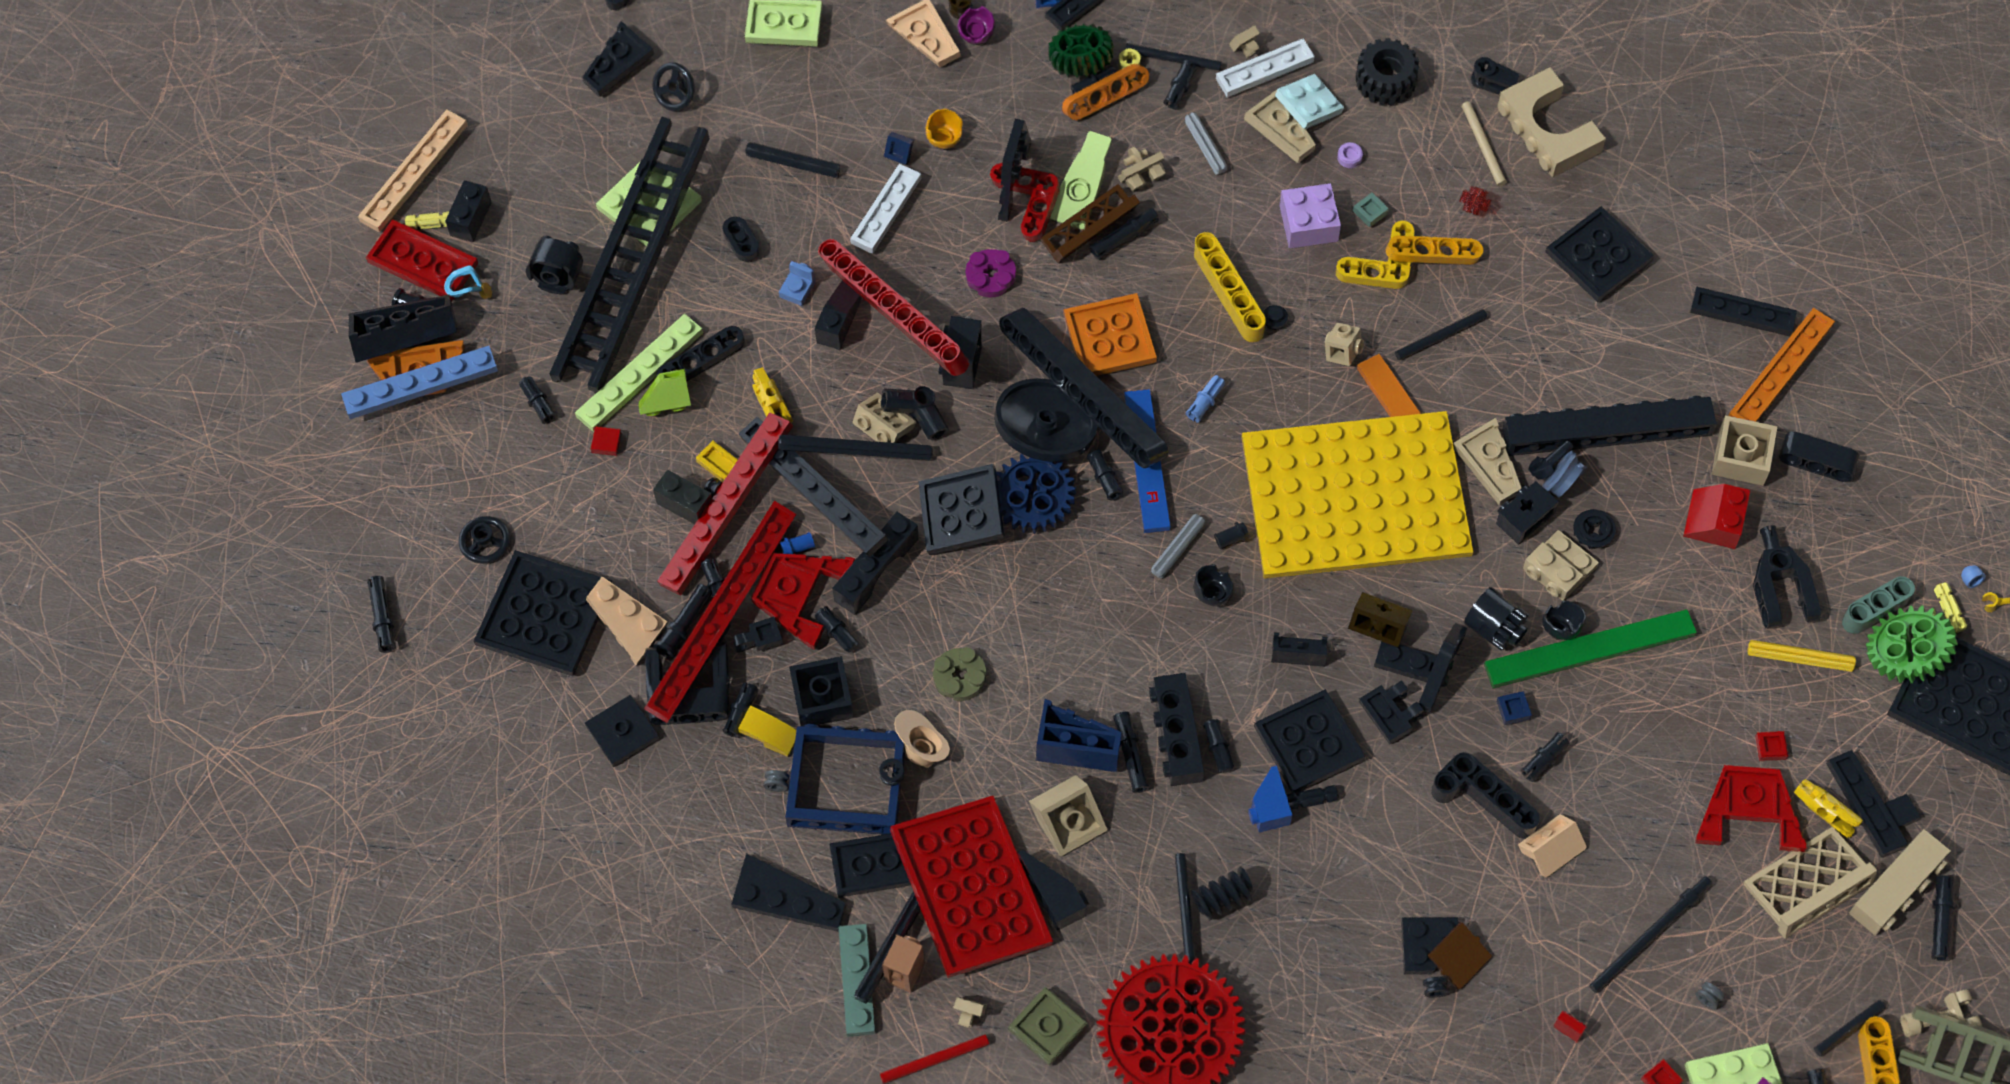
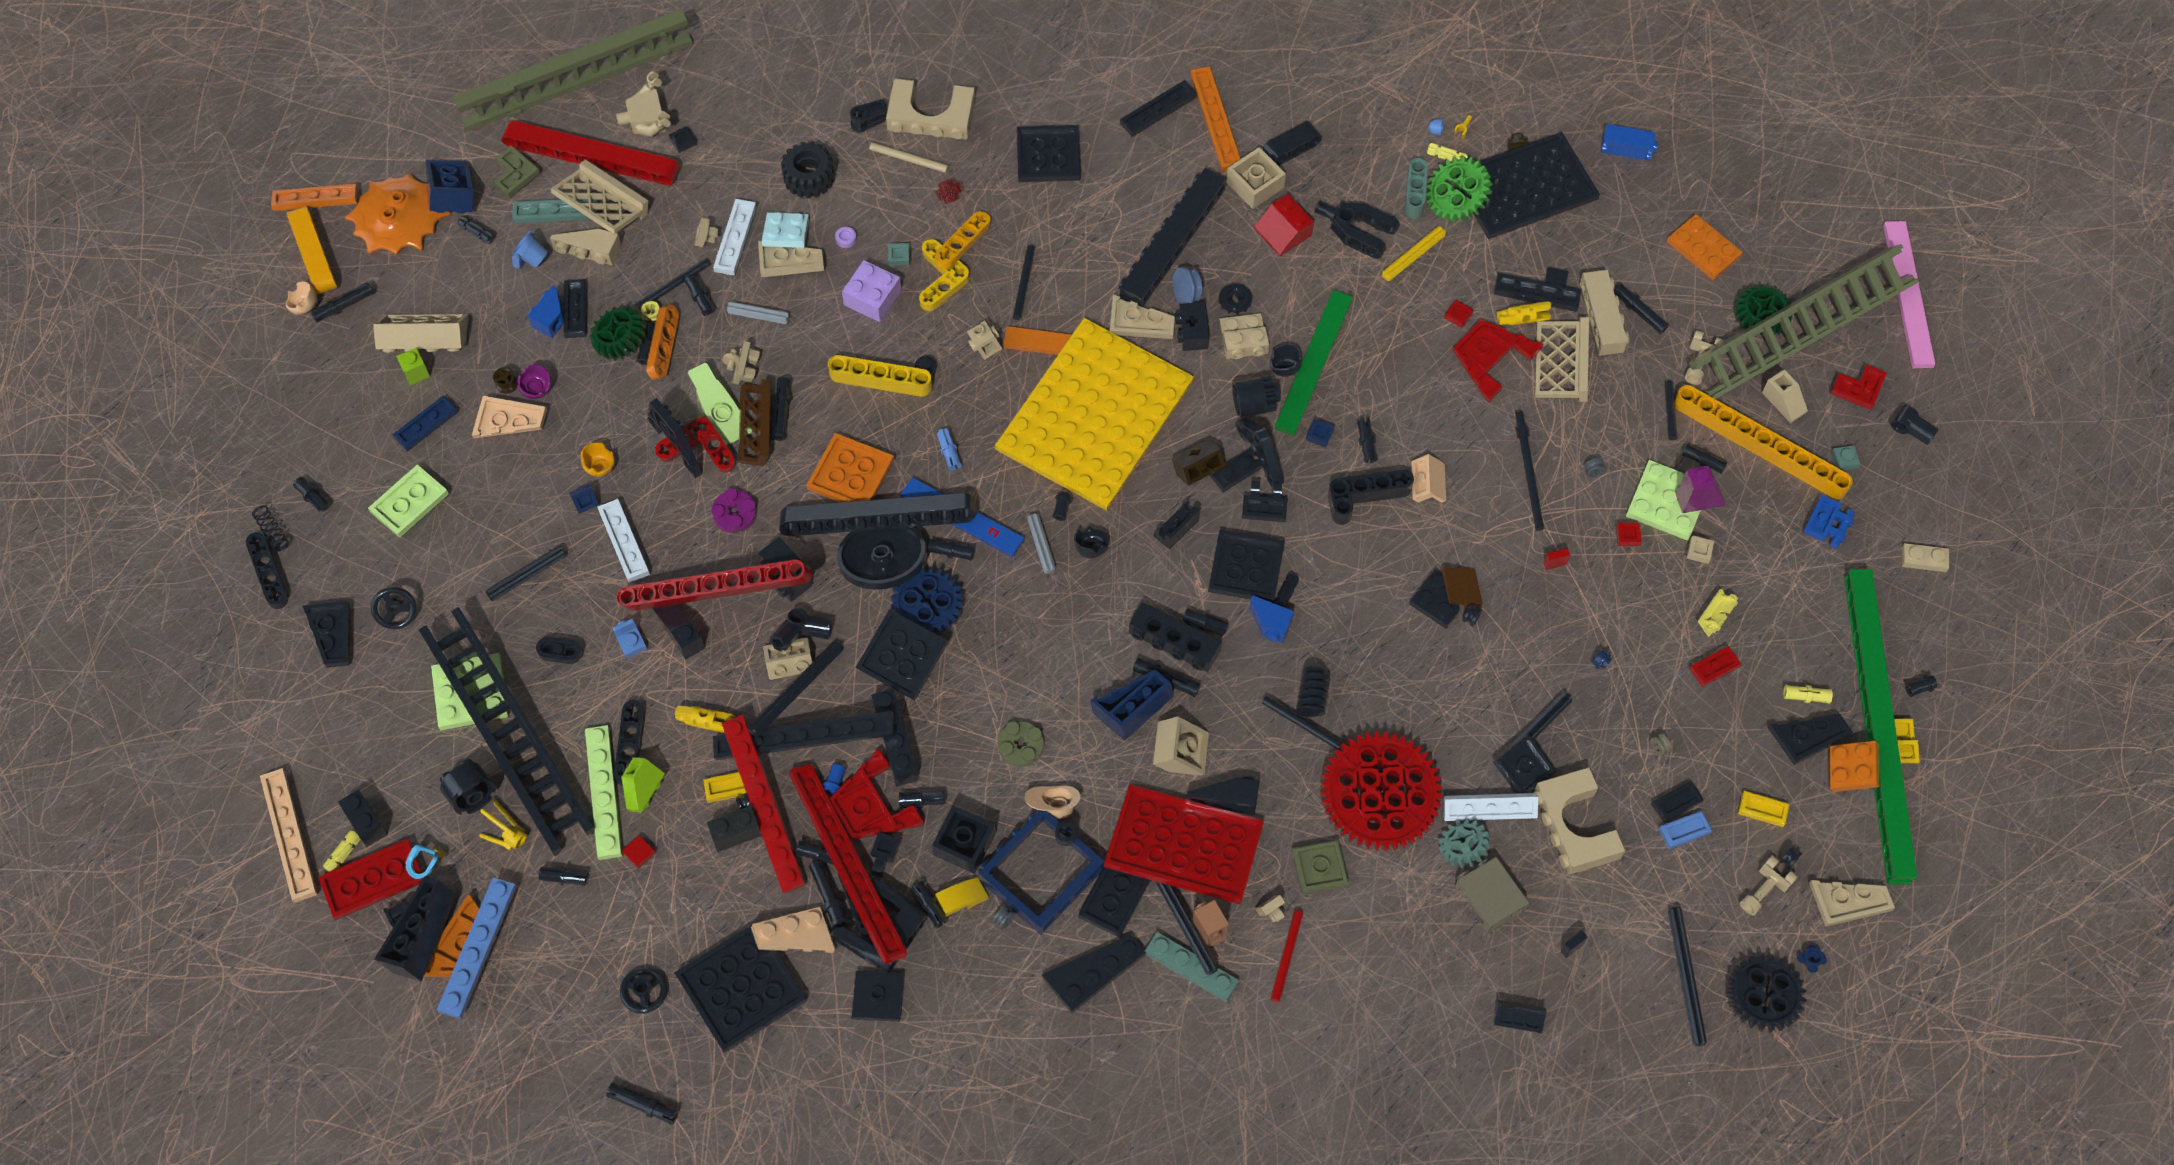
camera: 55 degrees left, 0 degrees up
(542, 335) = (513, 836): none -> yellow plant
(1542, 467) = (1169, 293): black bar -> none

